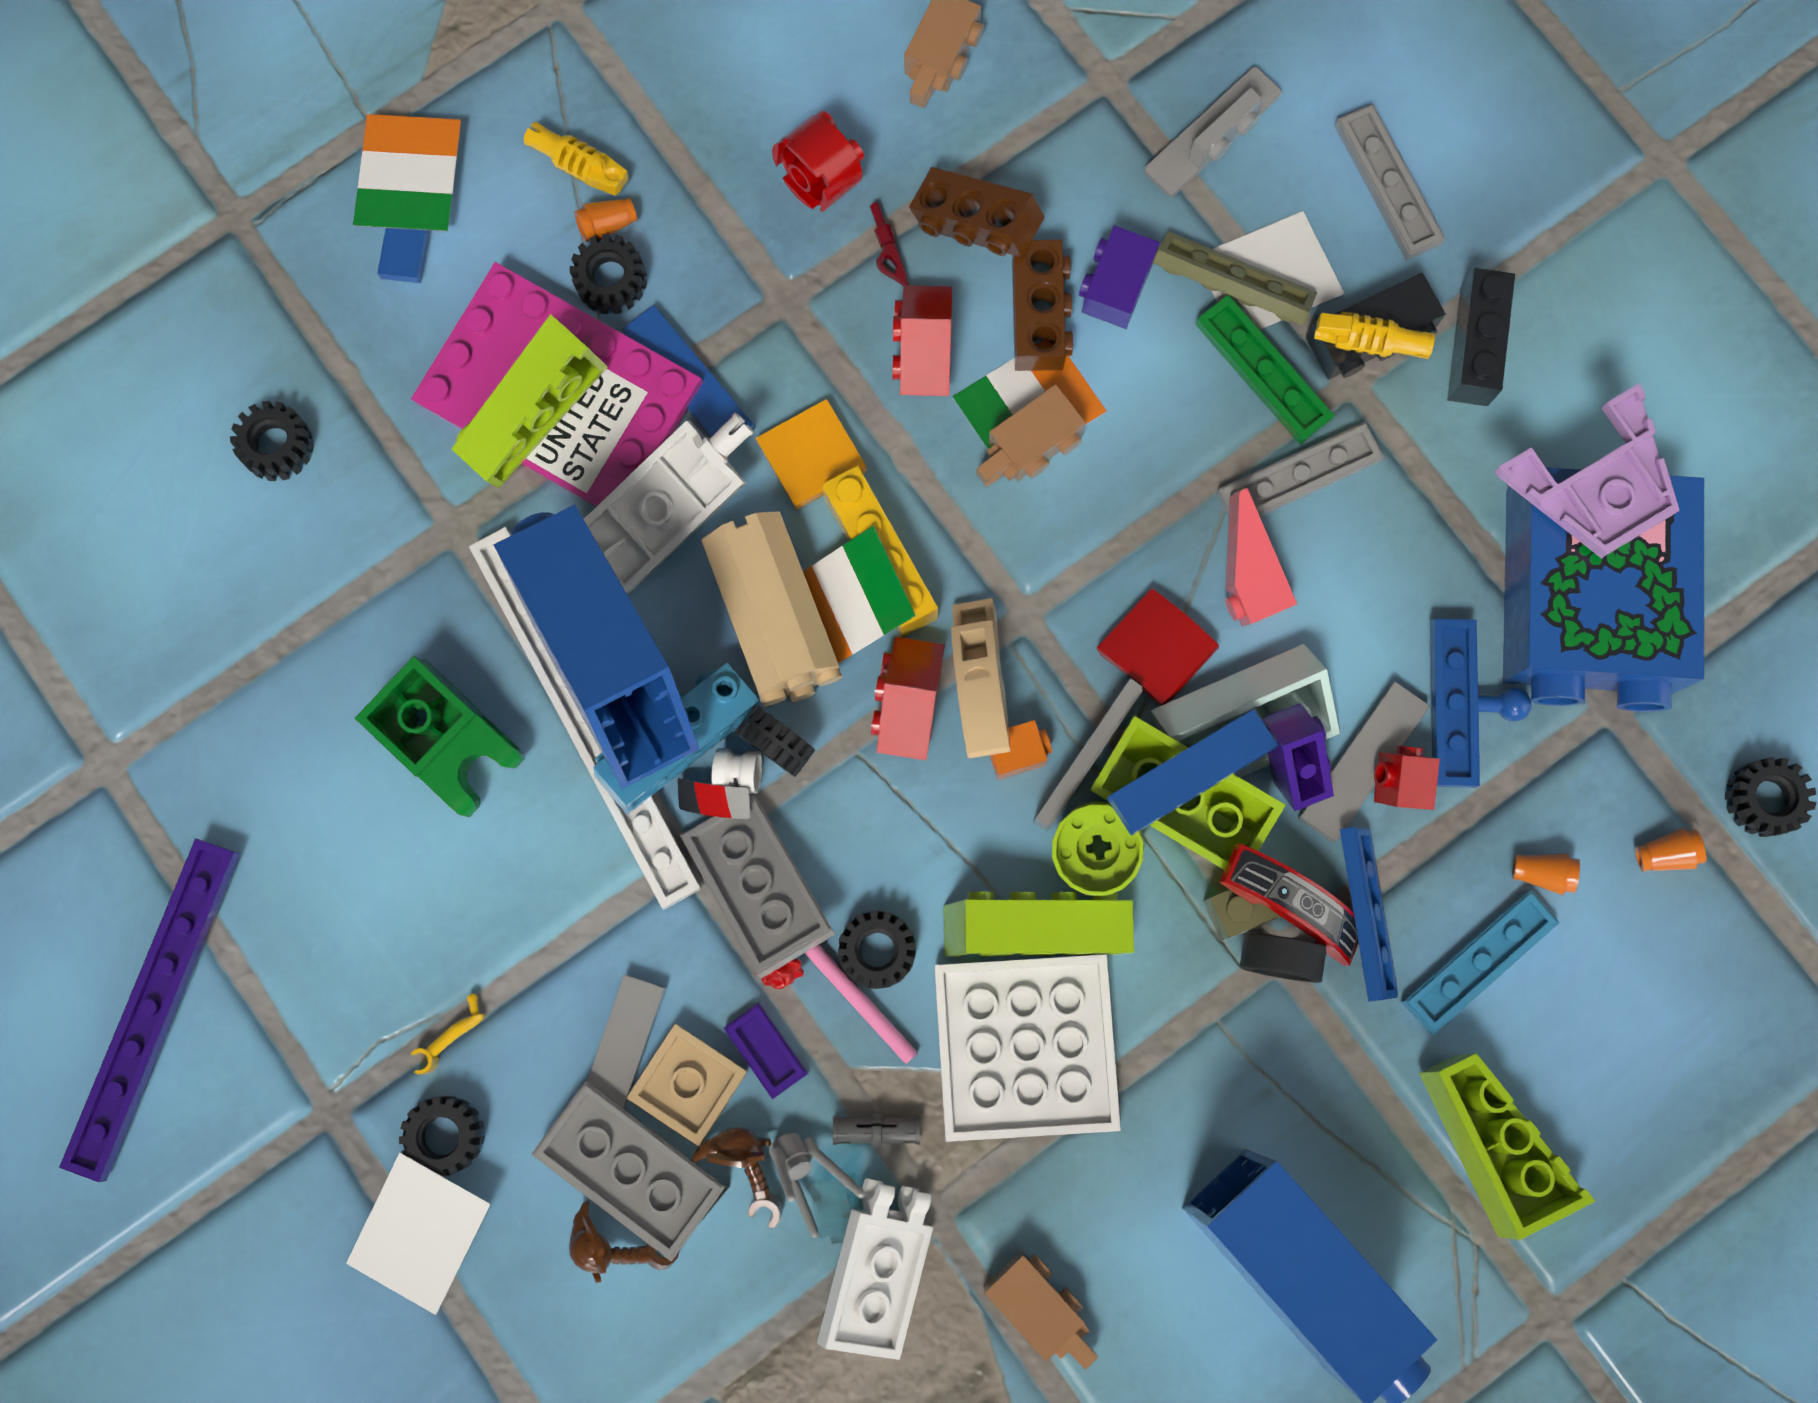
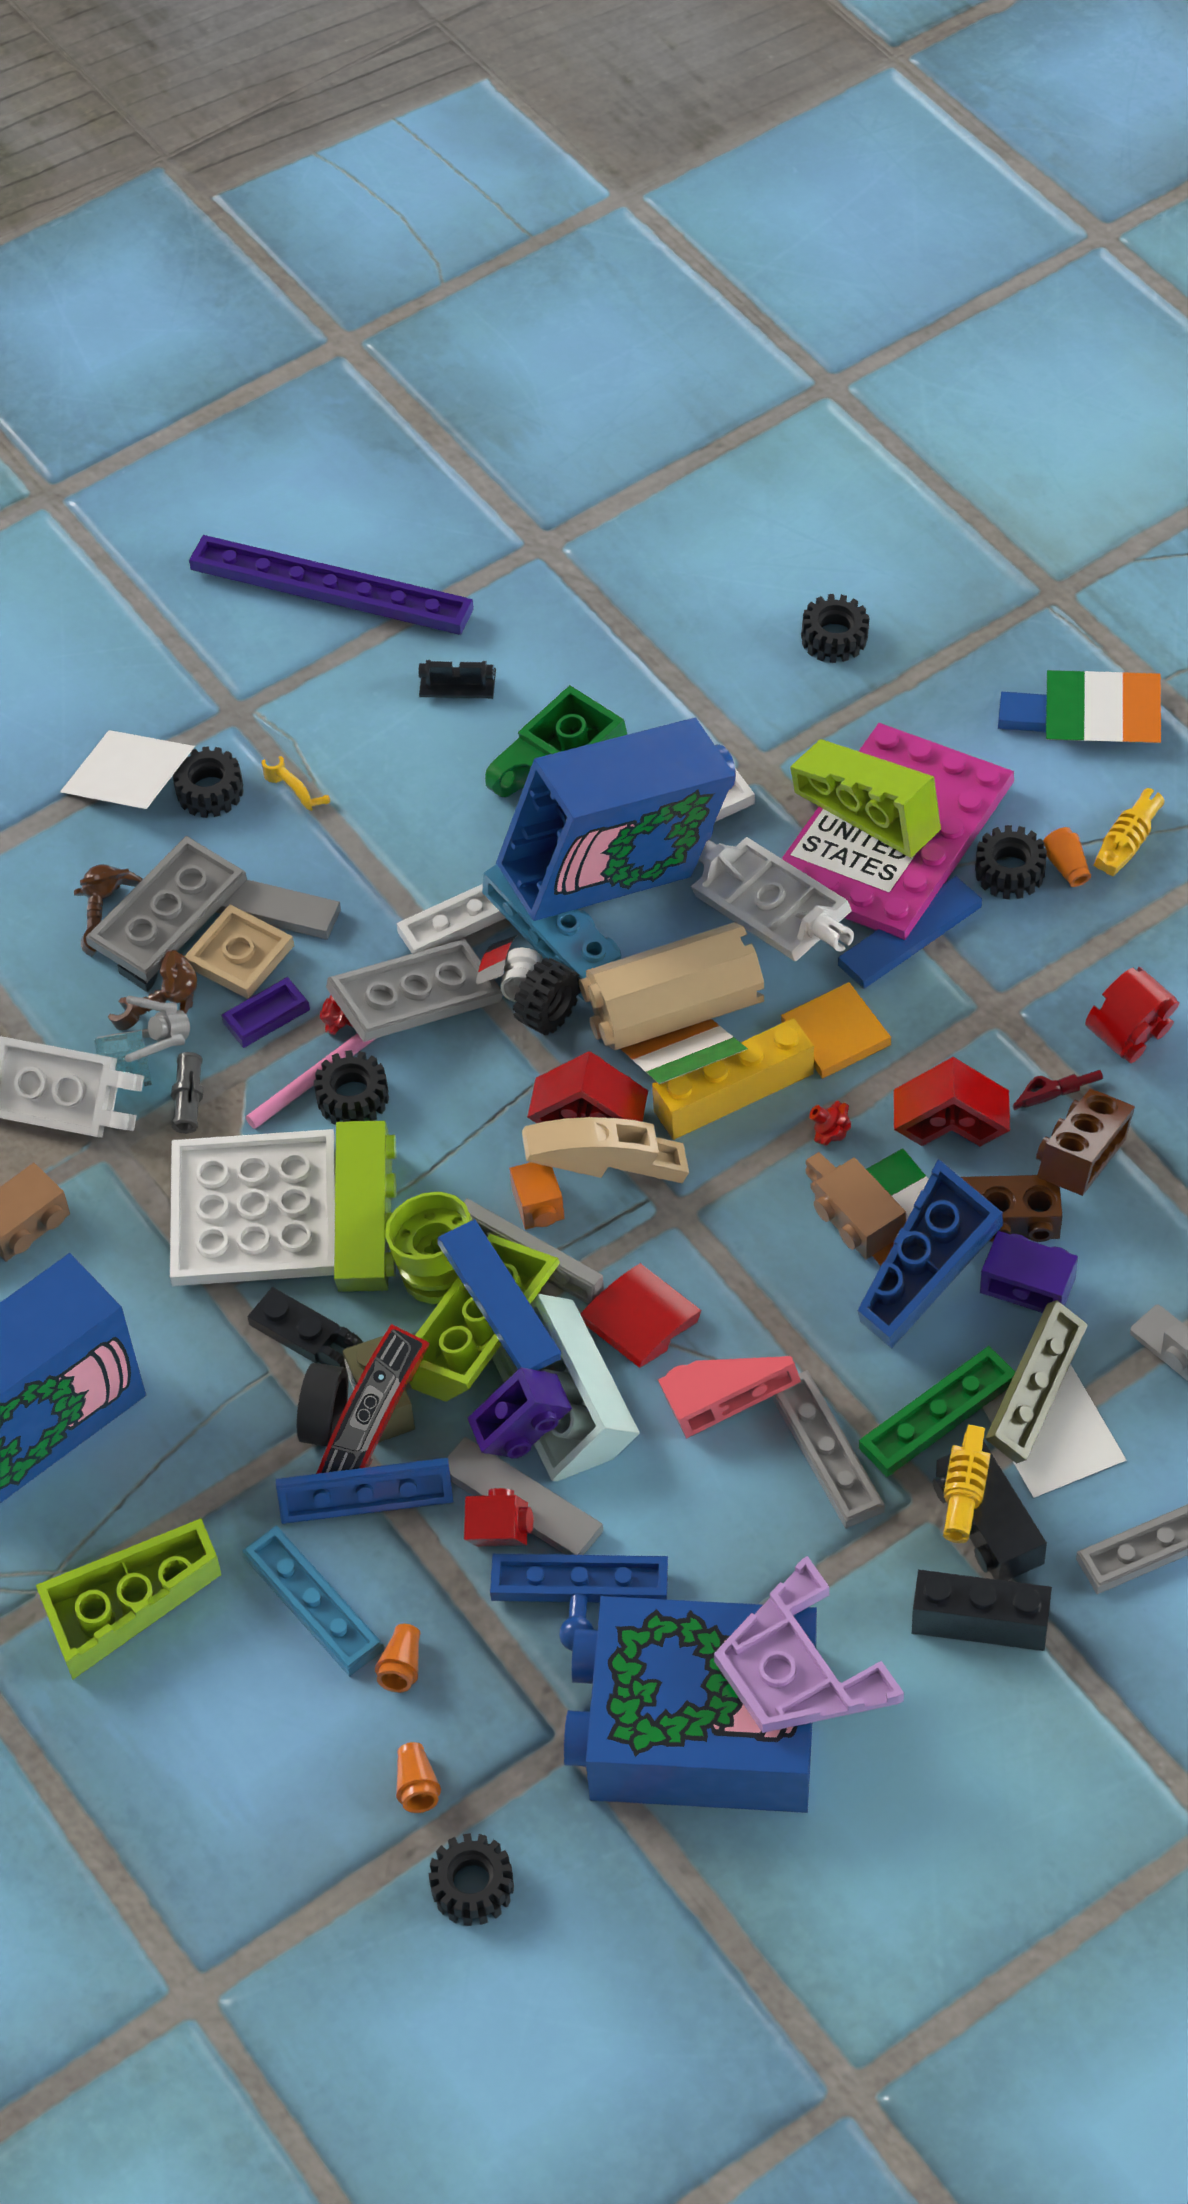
camera: 90 degrees right, 25 degrees down
(312, 854) = (466, 681): none -> black hinge
(933, 458) = (830, 1122): none -> red plant
(1117, 361) = (929, 1252): none -> blue wedge
(1171, 988) = (301, 1328): none -> black hinge

